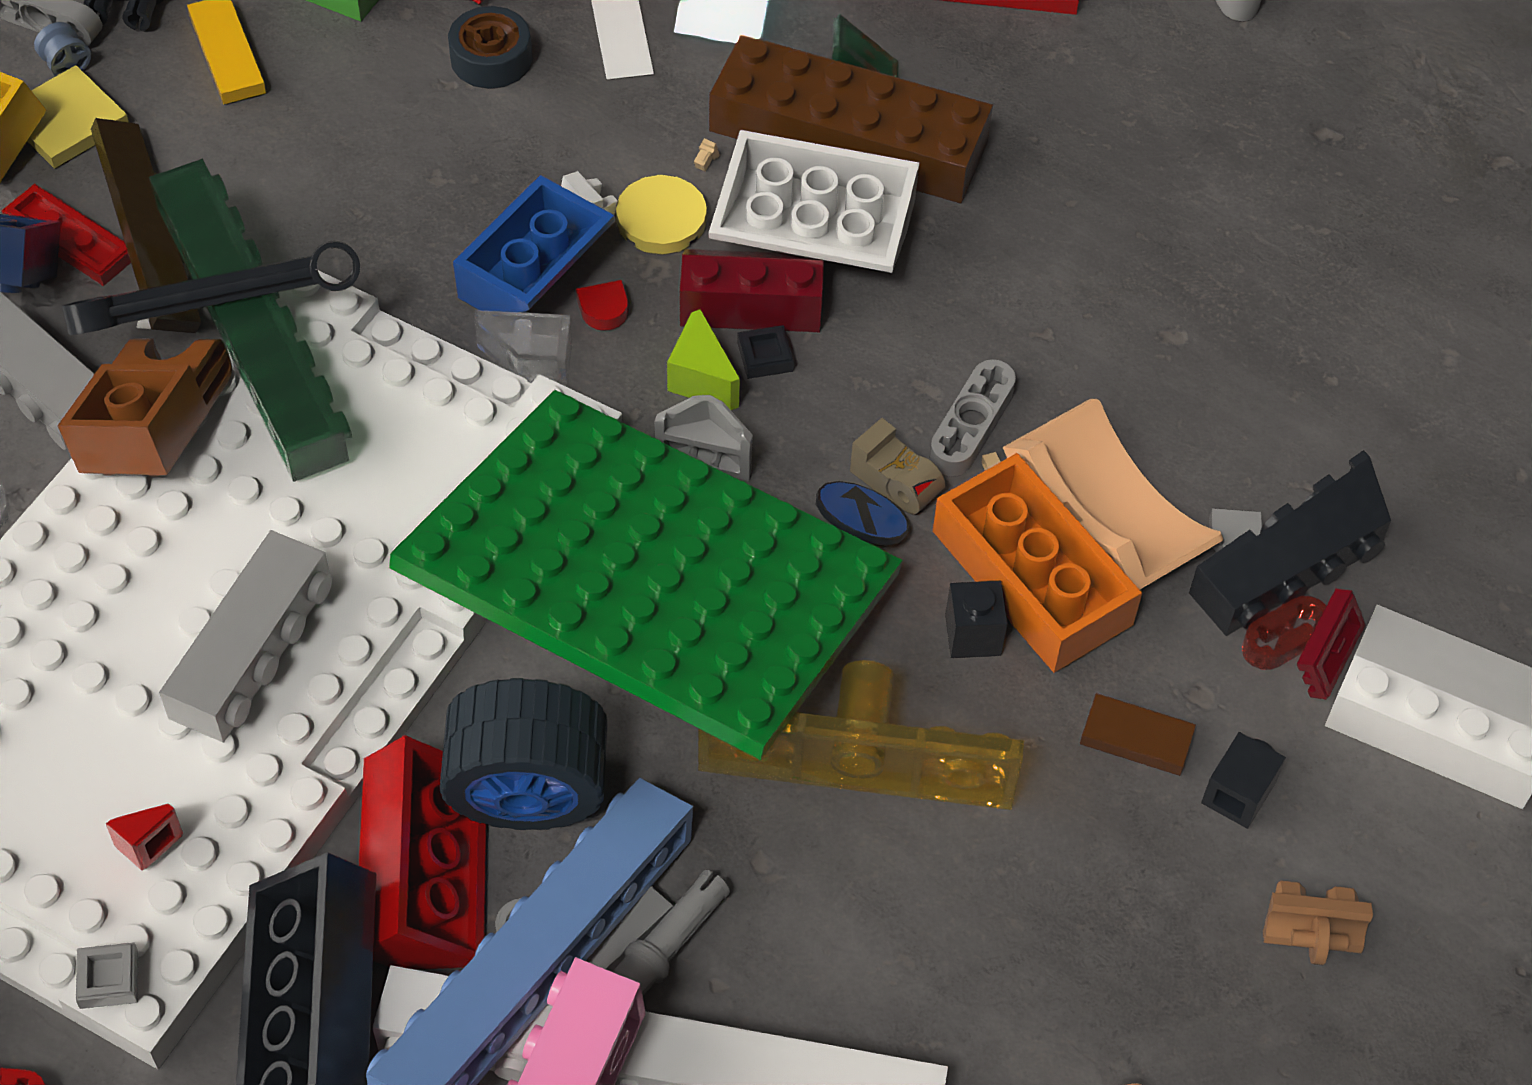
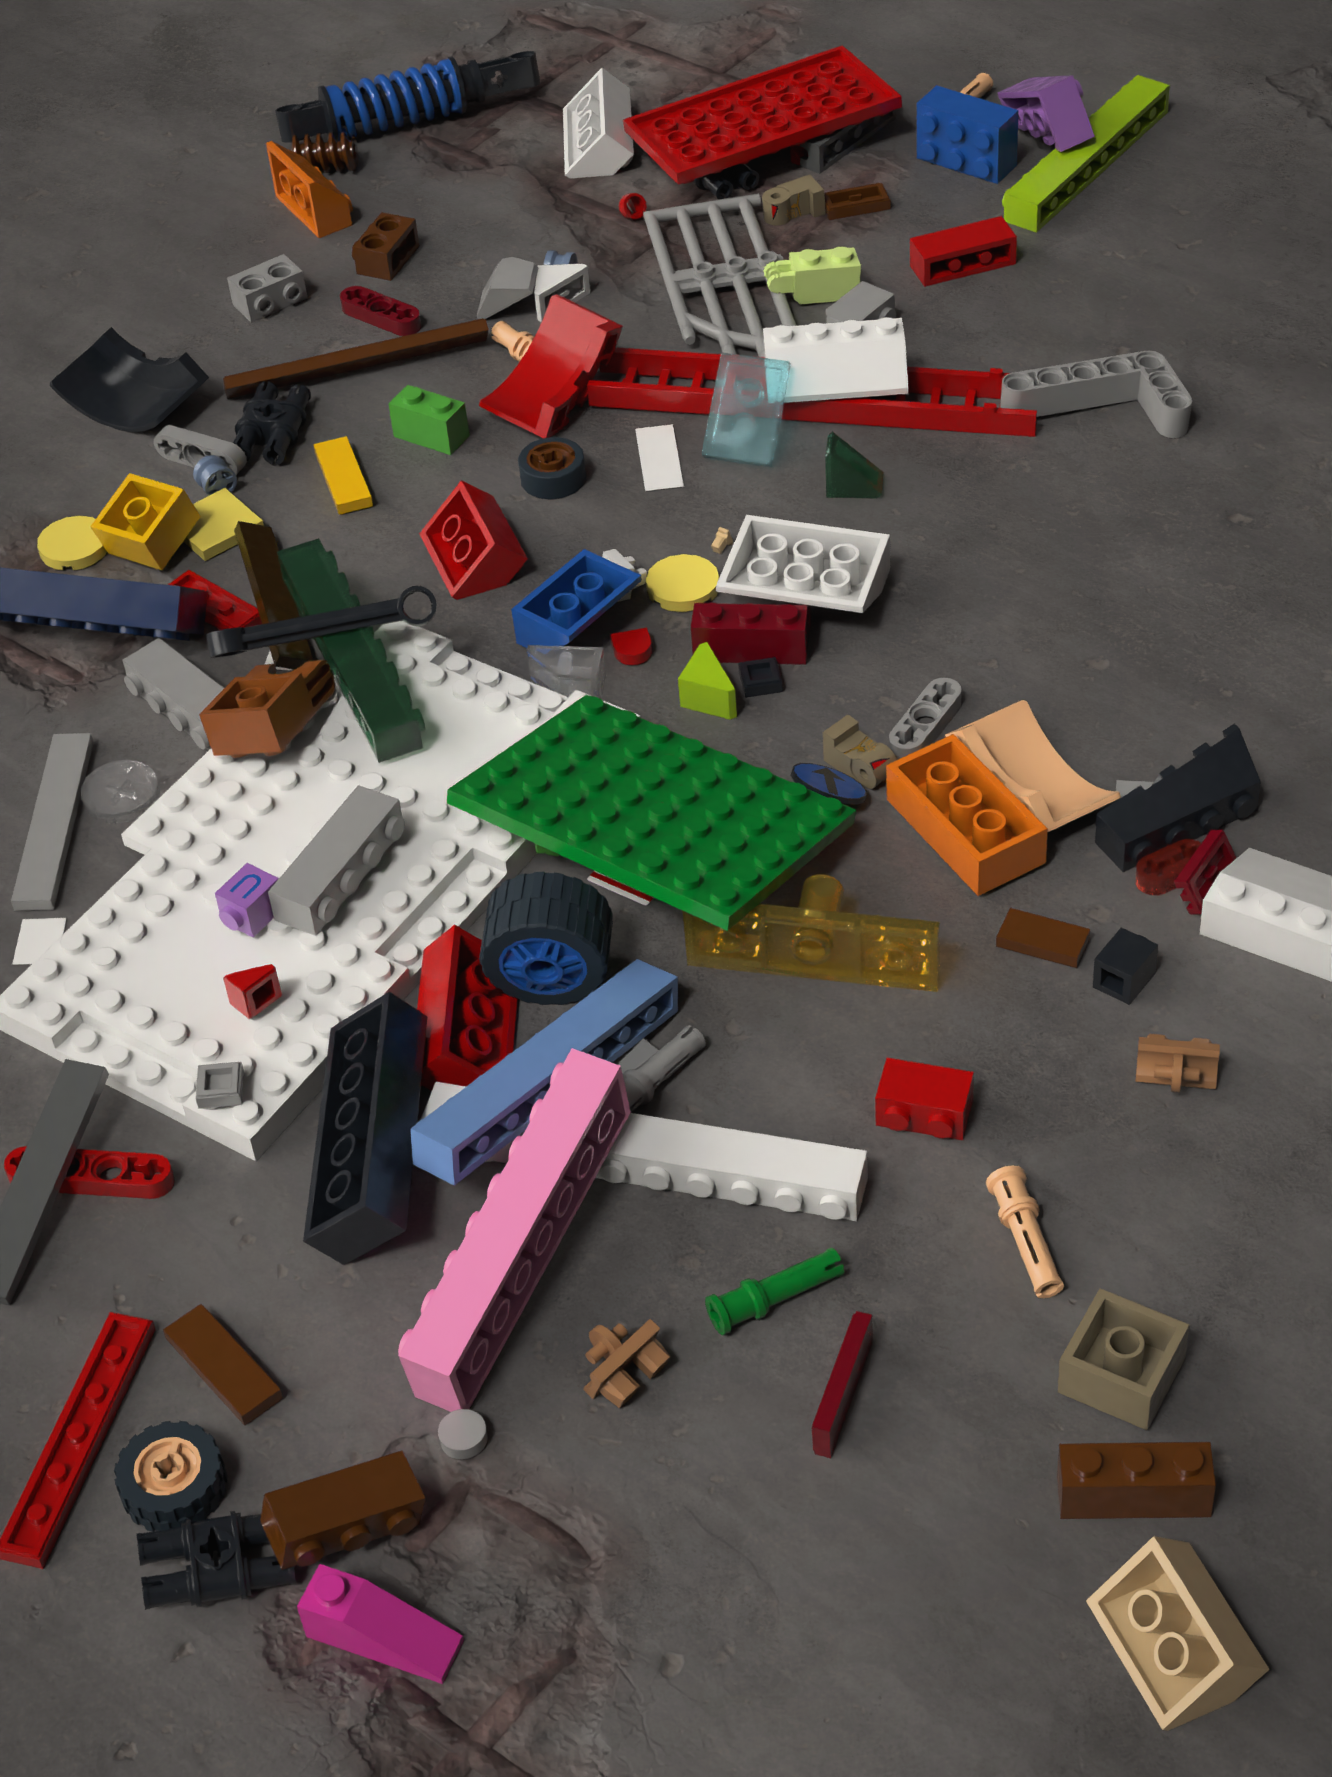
camera: 10 degrees right, 10 degrees down
(129, 697) = (245, 900): none -> medium lavender brick
(395, 154) = (472, 543): none -> red slope
(707, 432) = (708, 721): light grey slope -> none
(851, 108) = (834, 497): reddish brown brick -> none
(975, 619) = (915, 855): black brick -> none
(1010, 978) = (924, 1098): none -> red brick

